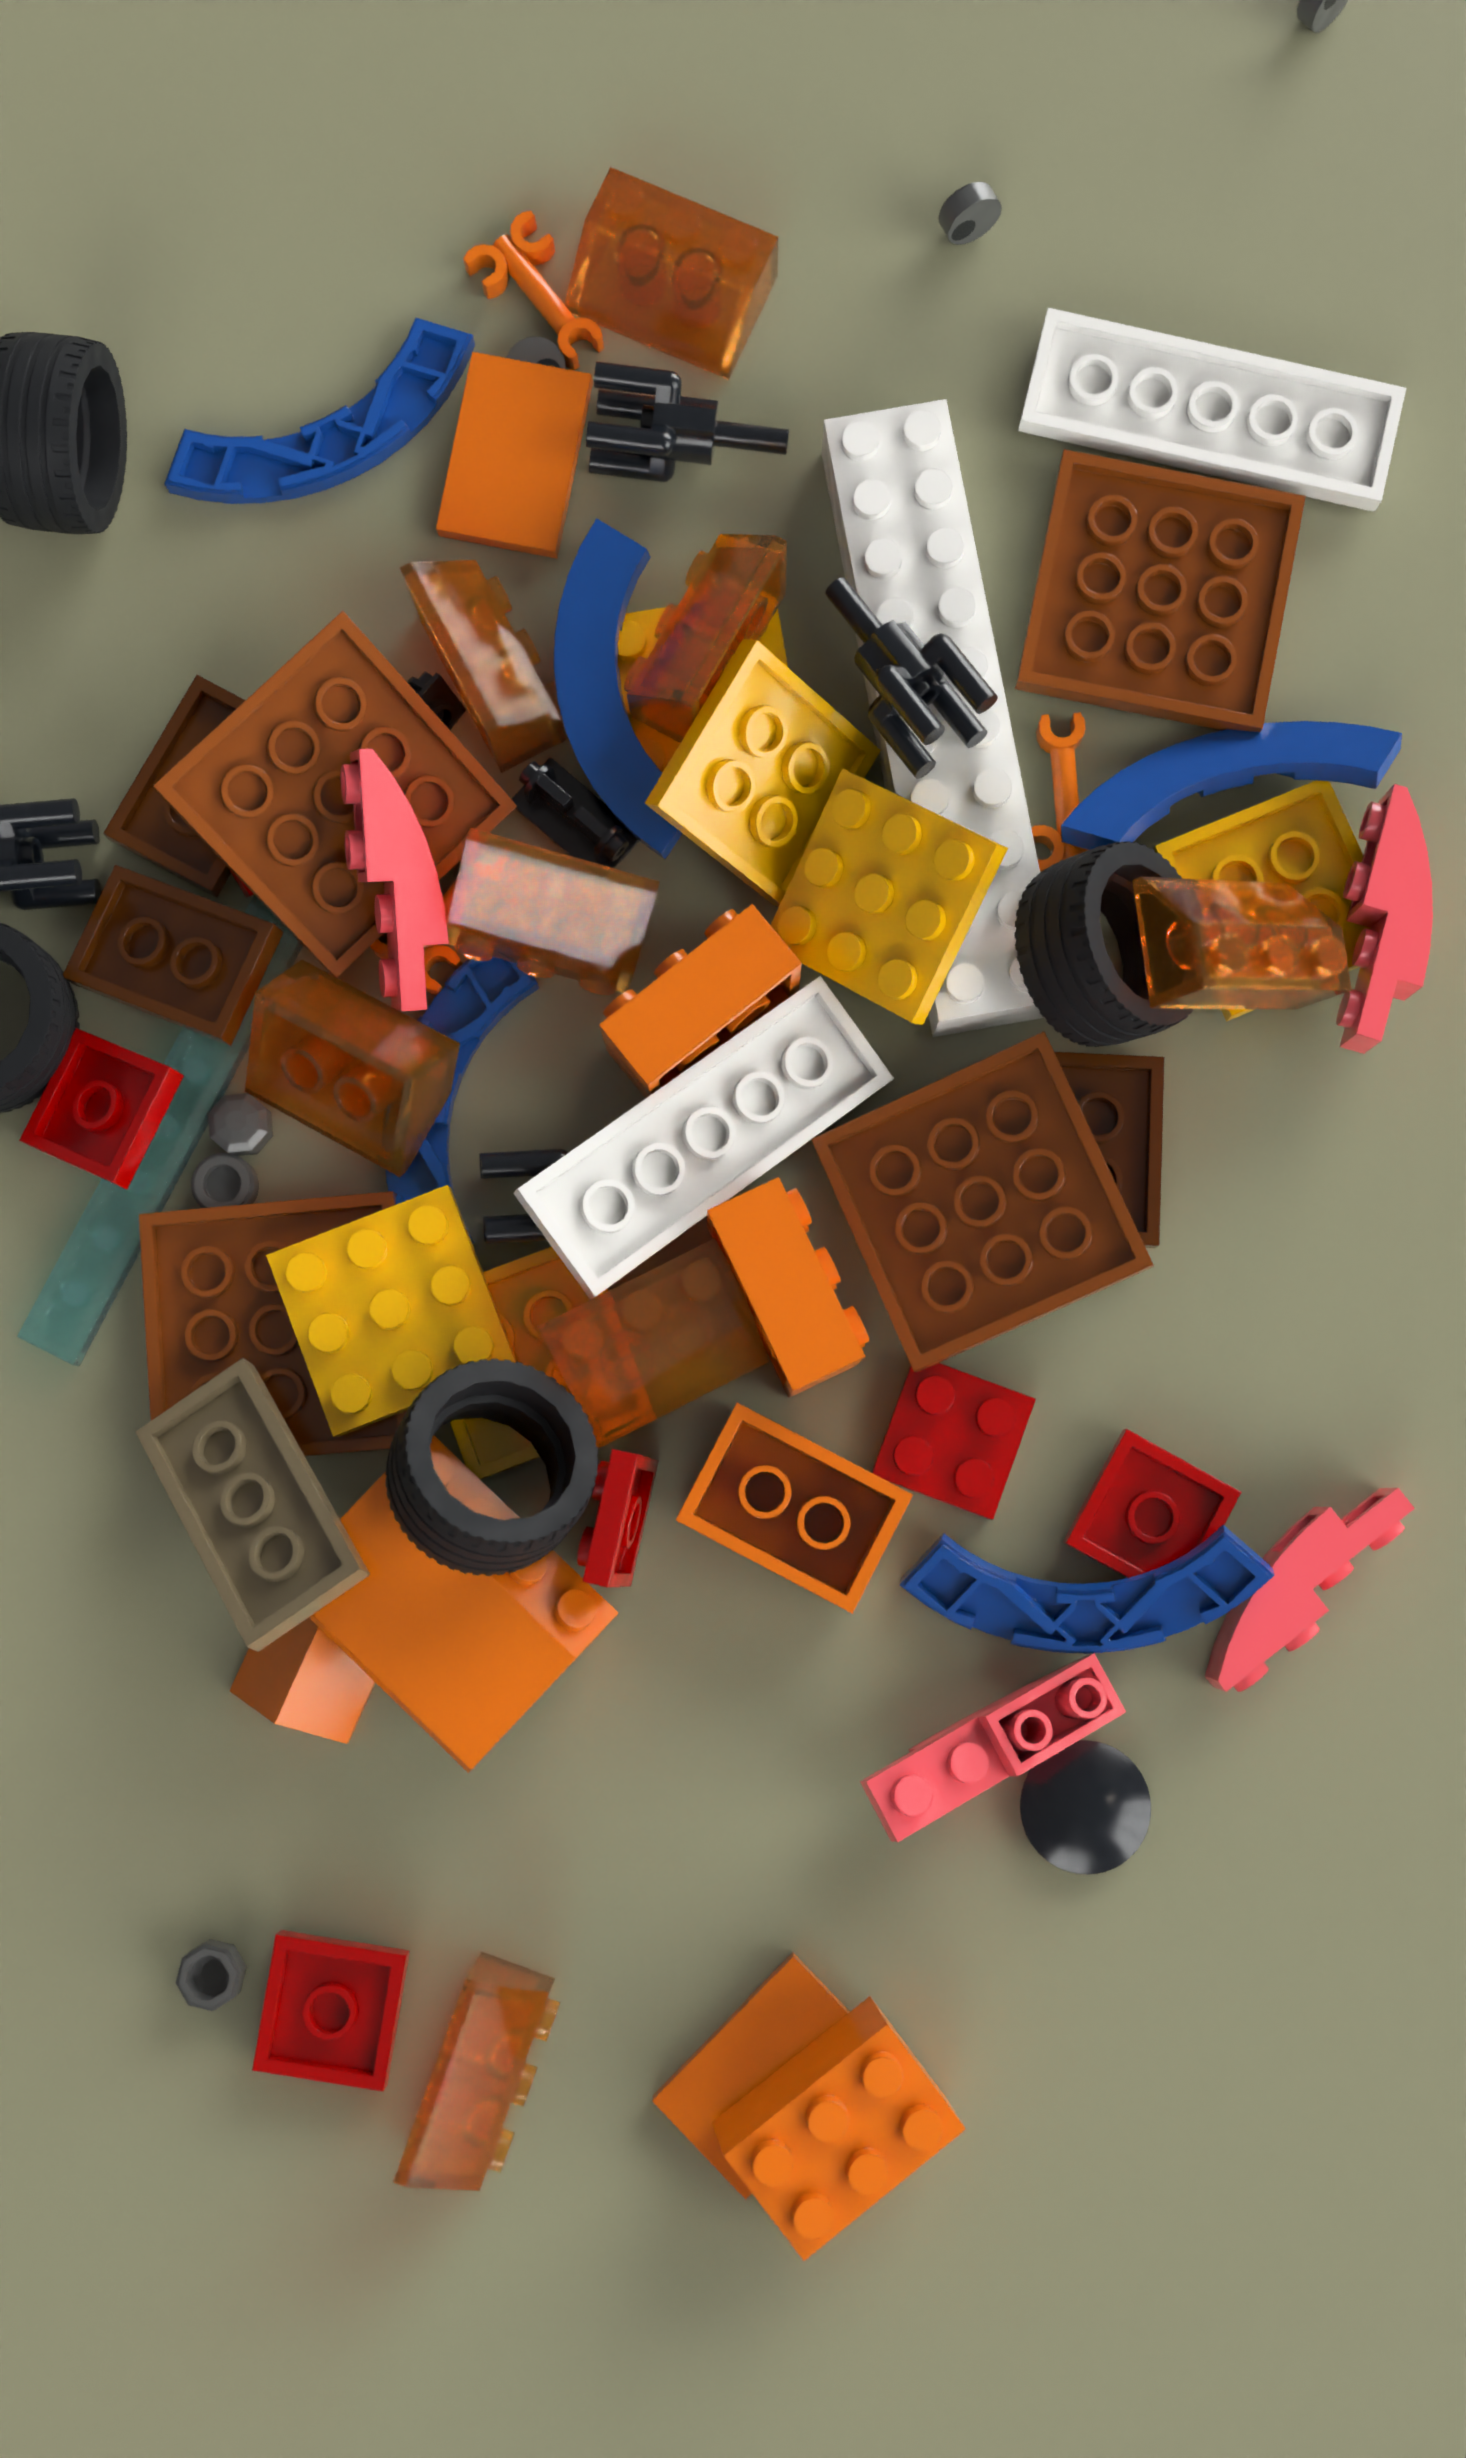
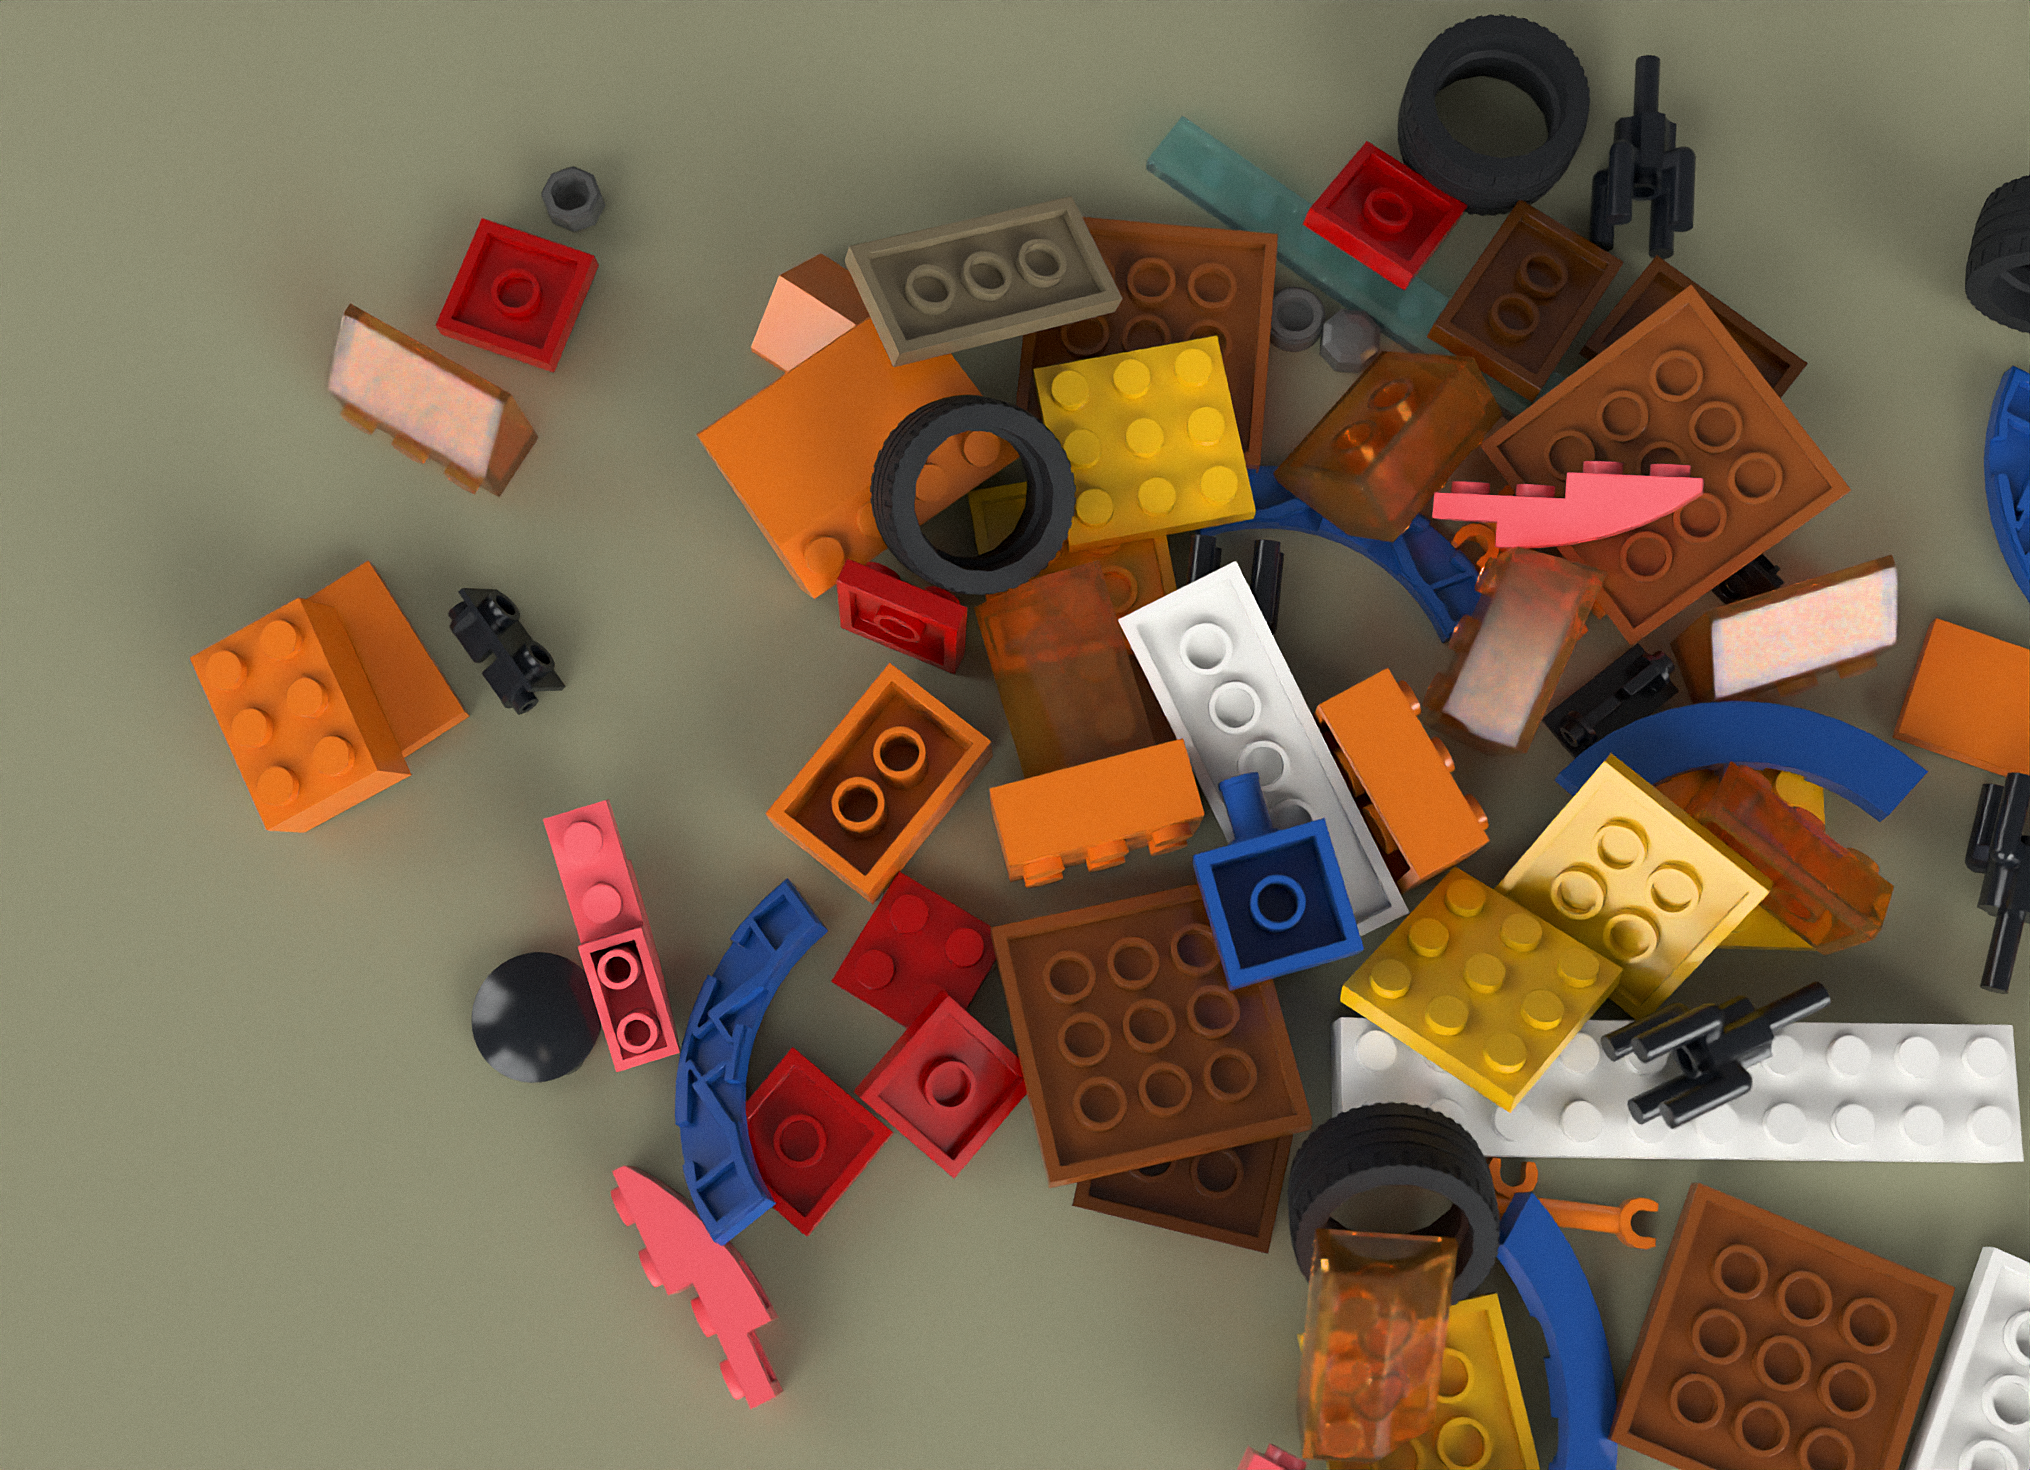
camera: 100 degrees right, 5 degrees down
(696, 1950) = (491, 624): none -> black hinge
(840, 1099) = (1273, 893): none -> blue brick
(1072, 1387) = (945, 1084): none -> red plate

